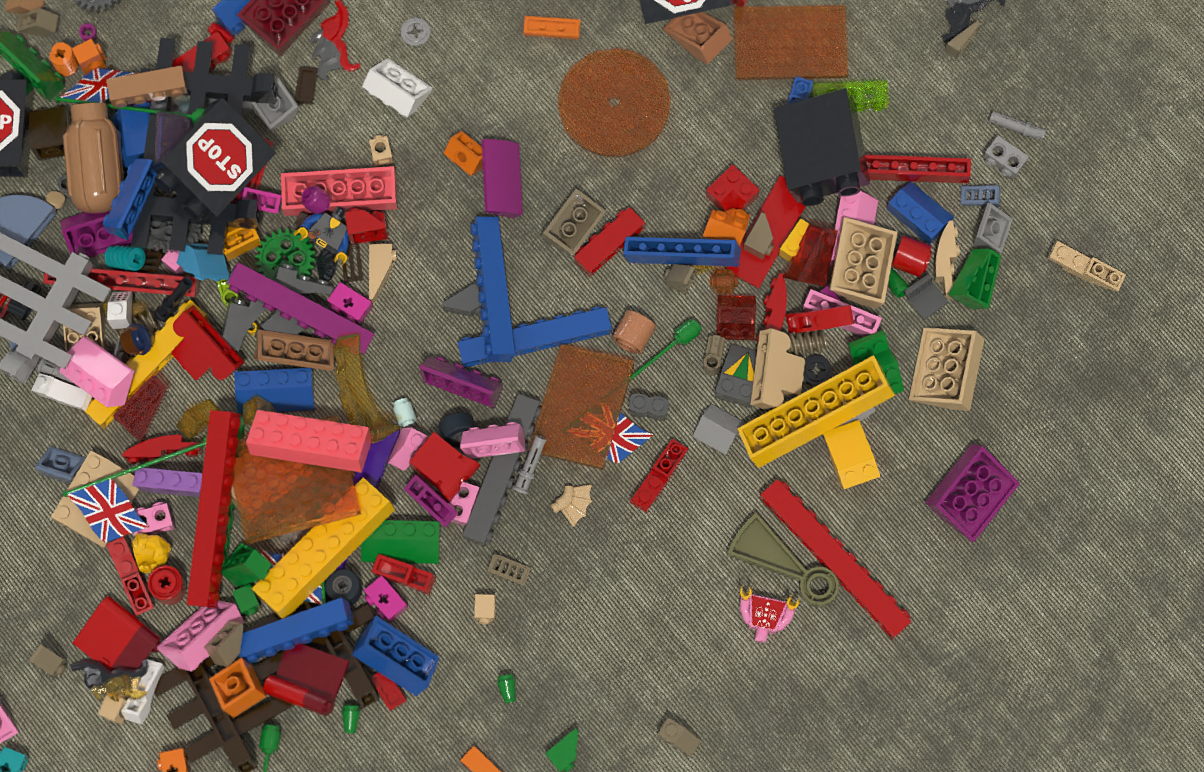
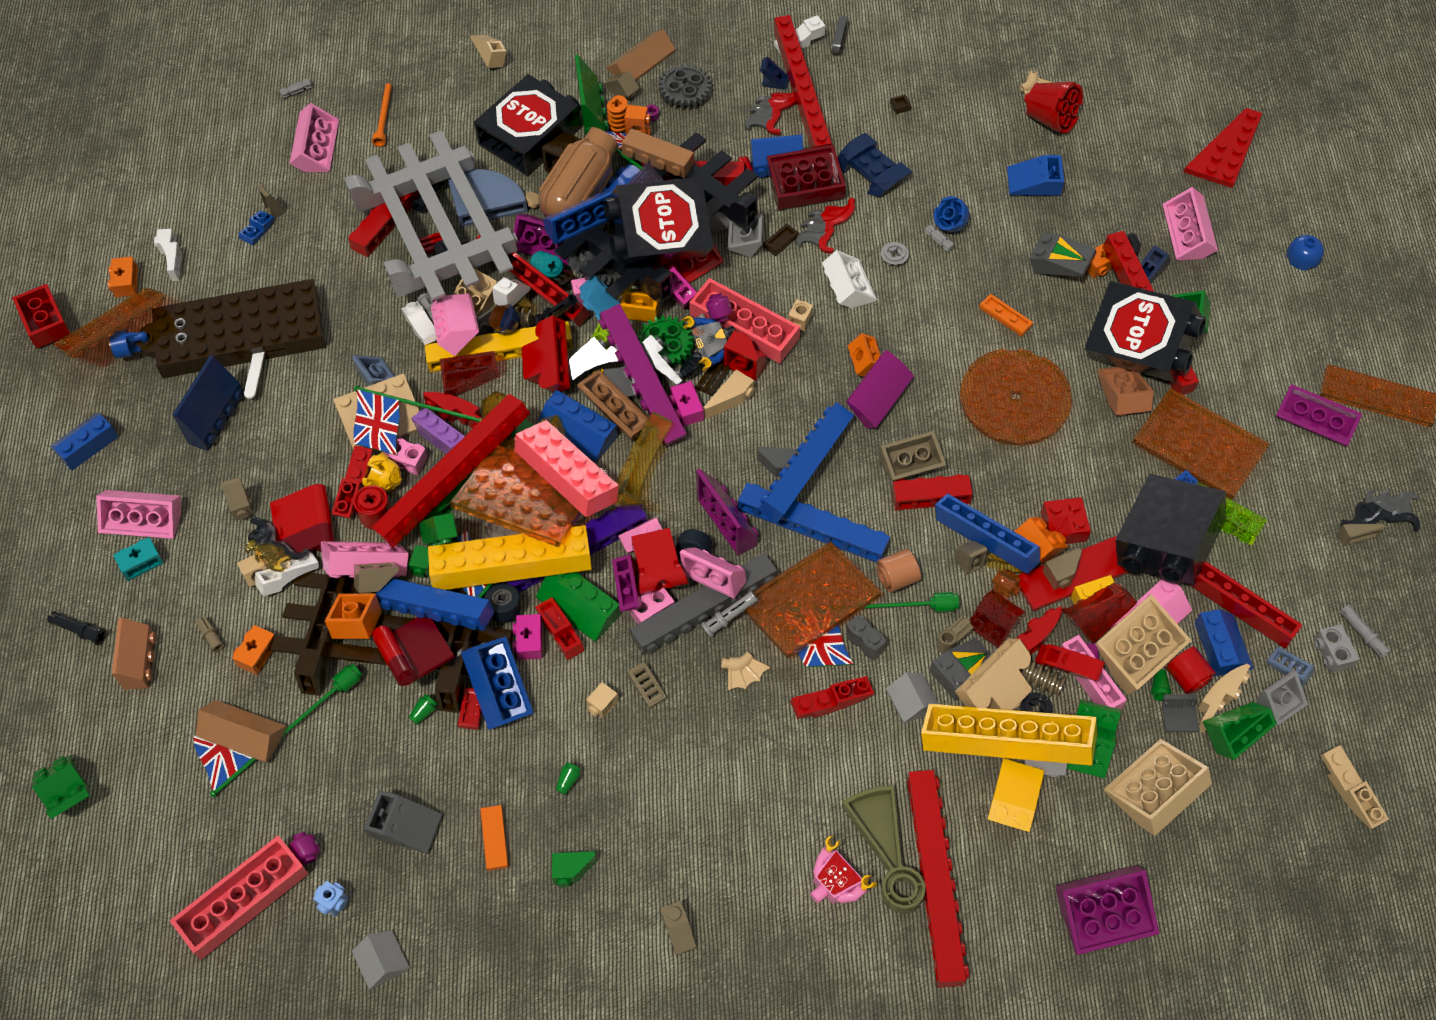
camera: 35 degrees right, 15 degrees down
(404, 413) = (662, 508): light aqua brick -> none

